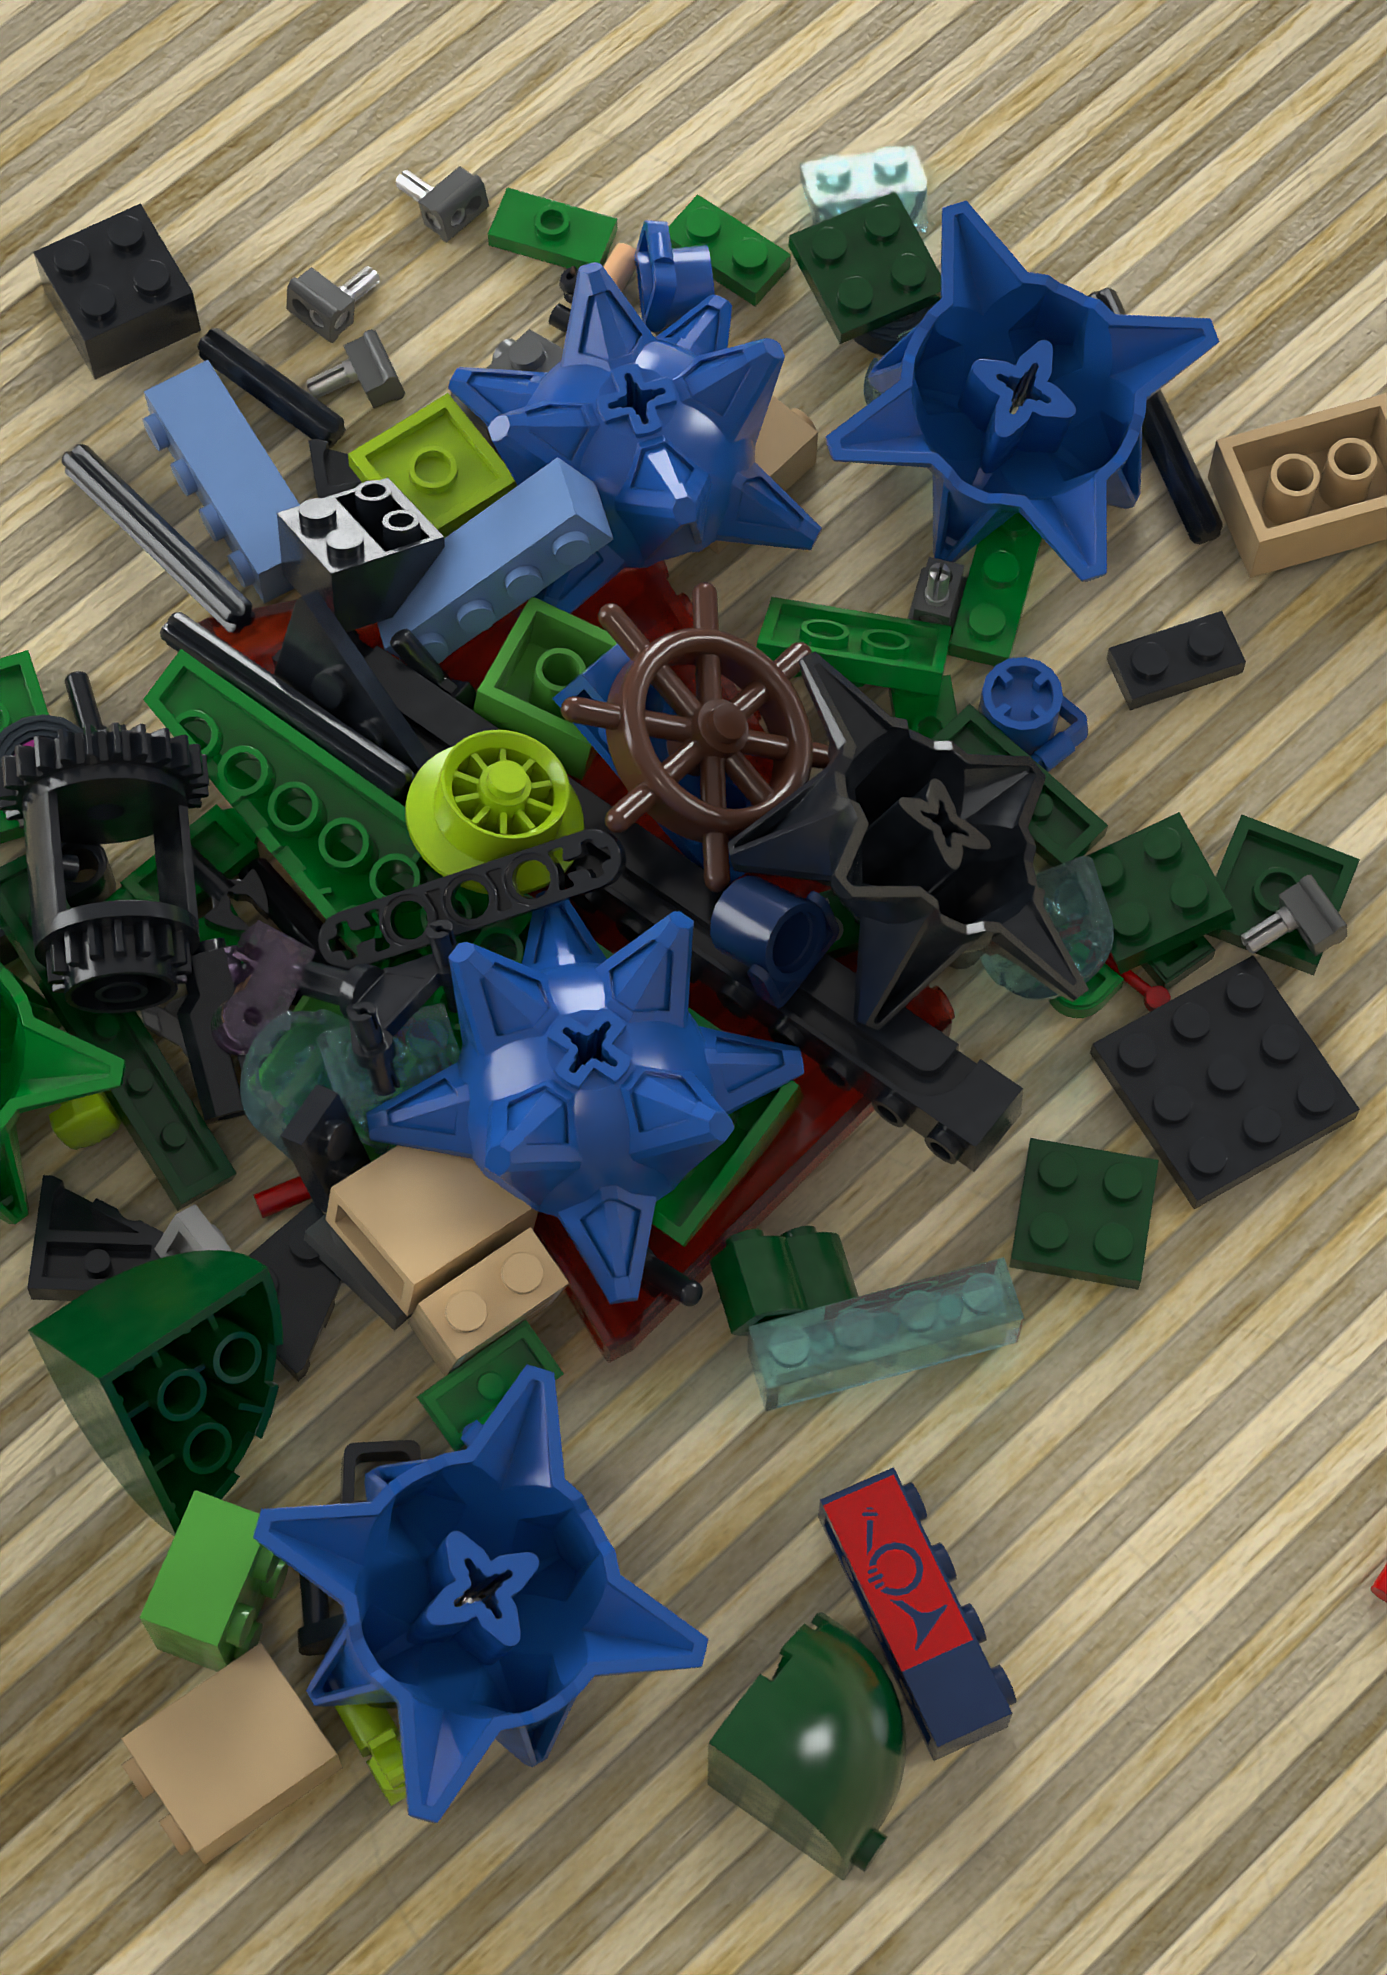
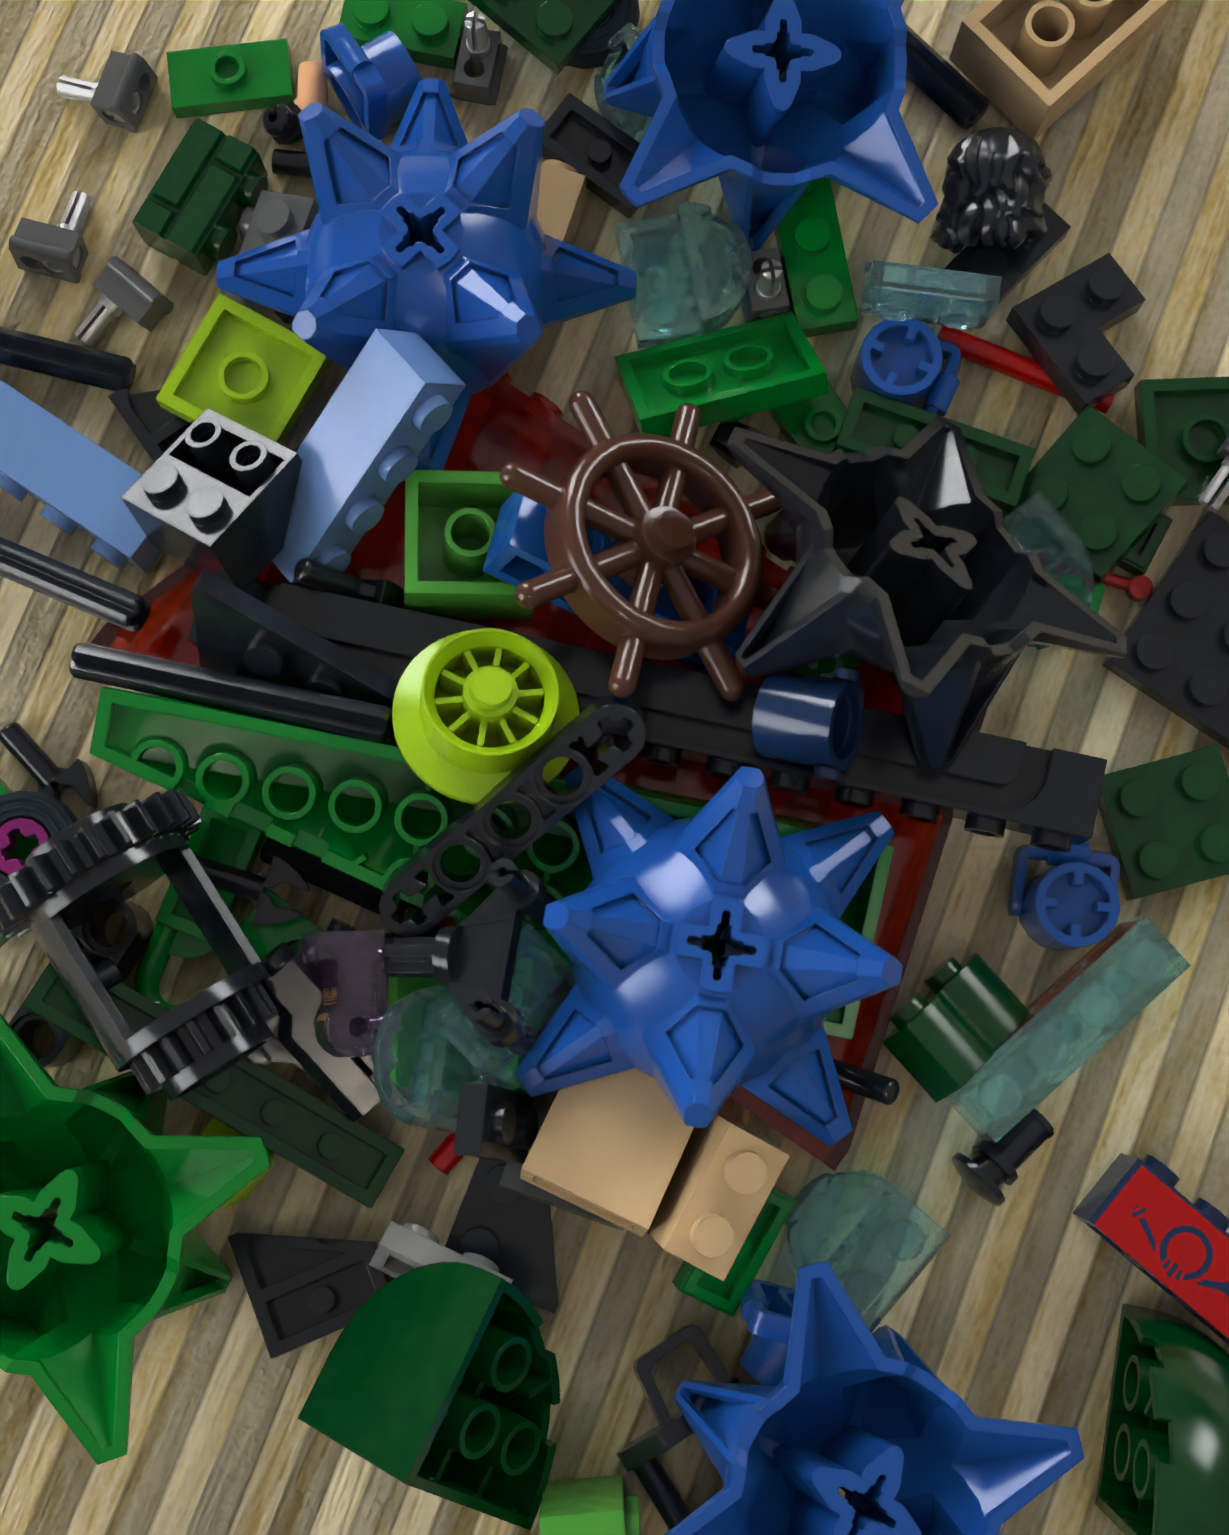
camera: 25 degrees left, 15 degrees up
(473, 314) = (201, 197): none -> dark green brick
(614, 1435) = (866, 1235): none -> clear light blue slope
(776, 1423) = (998, 1161): none -> black pin
(777, 305) = (480, 54): none -> dark grey piece
(829, 401) = (591, 147): none -> black plate
(868, 552) = (687, 271): none -> clear light blue slope
(947, 1224) = (1068, 903): none -> blue piece
(1071, 651) = (929, 295): none -> clear light blue slope
(1147, 768) = (1006, 362): none -> red bar
(1182, 595) = (992, 191): none -> black hair
(1198, 742) = (1066, 327): none -> black plate

